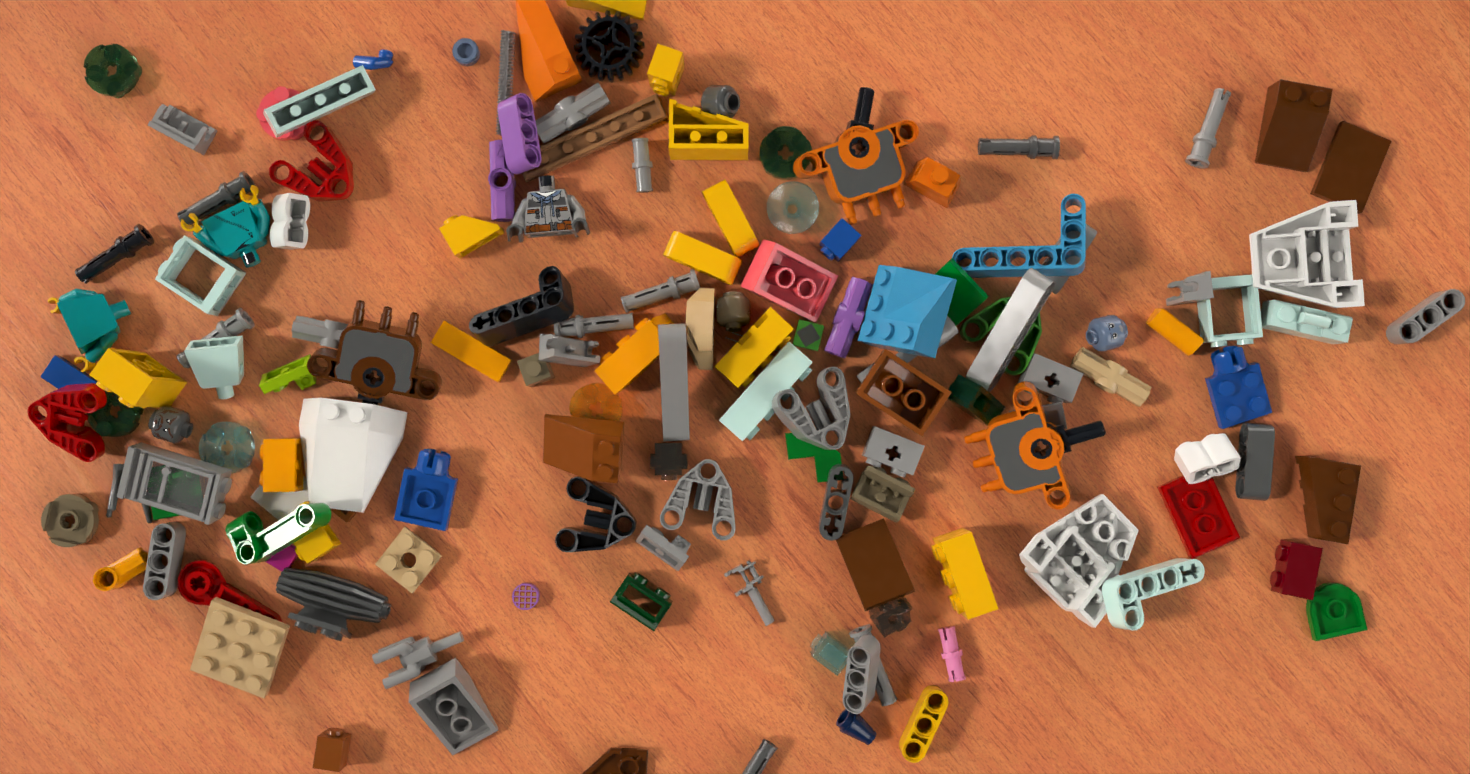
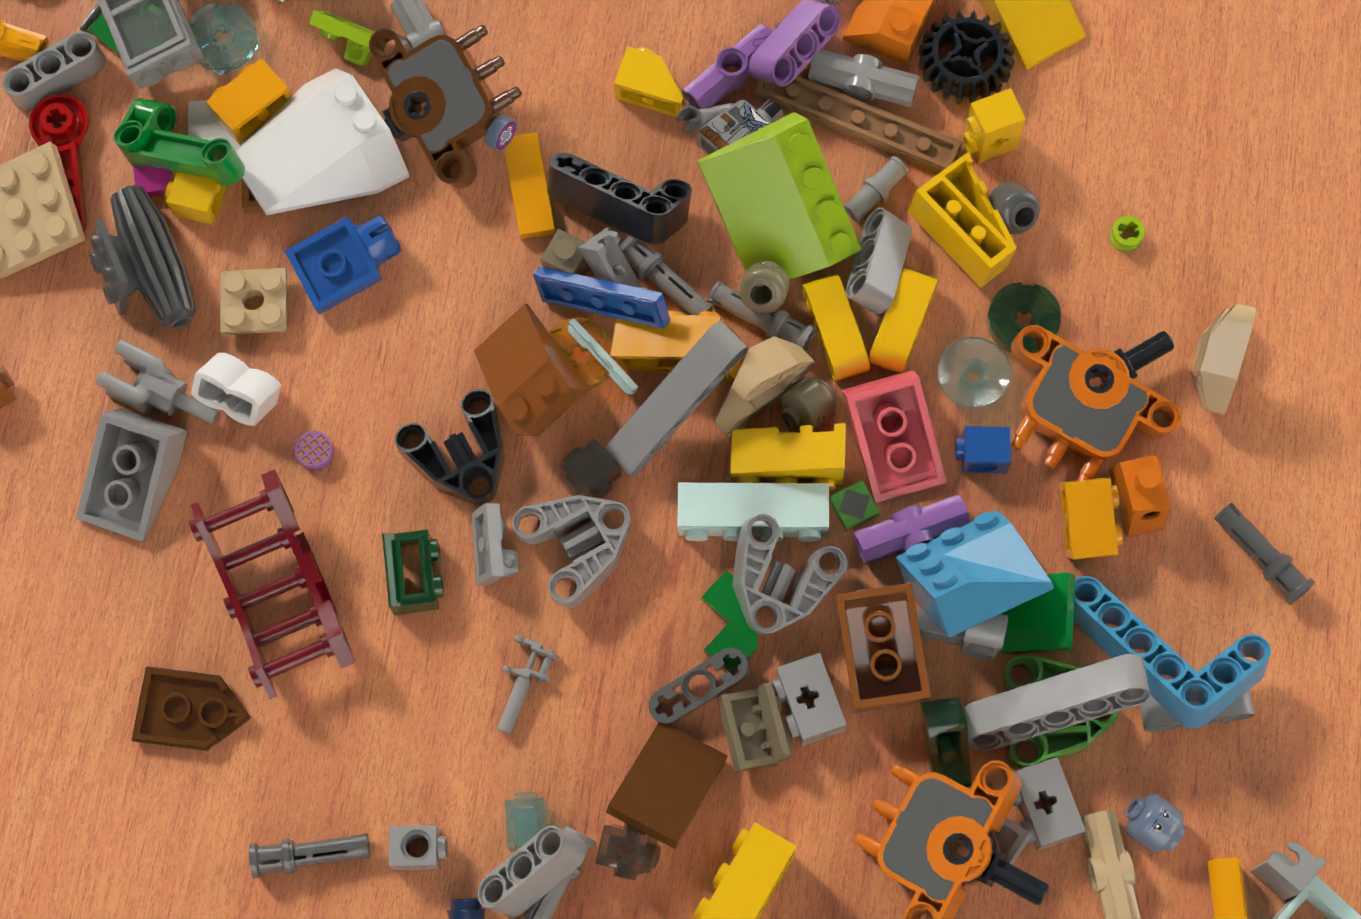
camera: 55 degrees right, 15 degrees down
(428, 342) = (500, 132): none -> sand blue tile
(454, 612) = (233, 387): none -> white brick
(579, 372) = (602, 297): none -> blue tile
(594, 657) = (305, 575): none -> dark red fence
(609, 228) = (780, 199): none -> lime slope
(625, 399) = (602, 356): none -> light aqua piece
(649, 278) = (764, 287): none -> dark tan head
(687, 202) = (879, 262): none -> light grey beam
(778, 51) = (1131, 243): none -> lime bush
(794, 732) = (399, 844): none -> light grey brick
(901, 69) = (1221, 356): none -> tan connector
(925, 220) = (1090, 518): none -> light orange brick

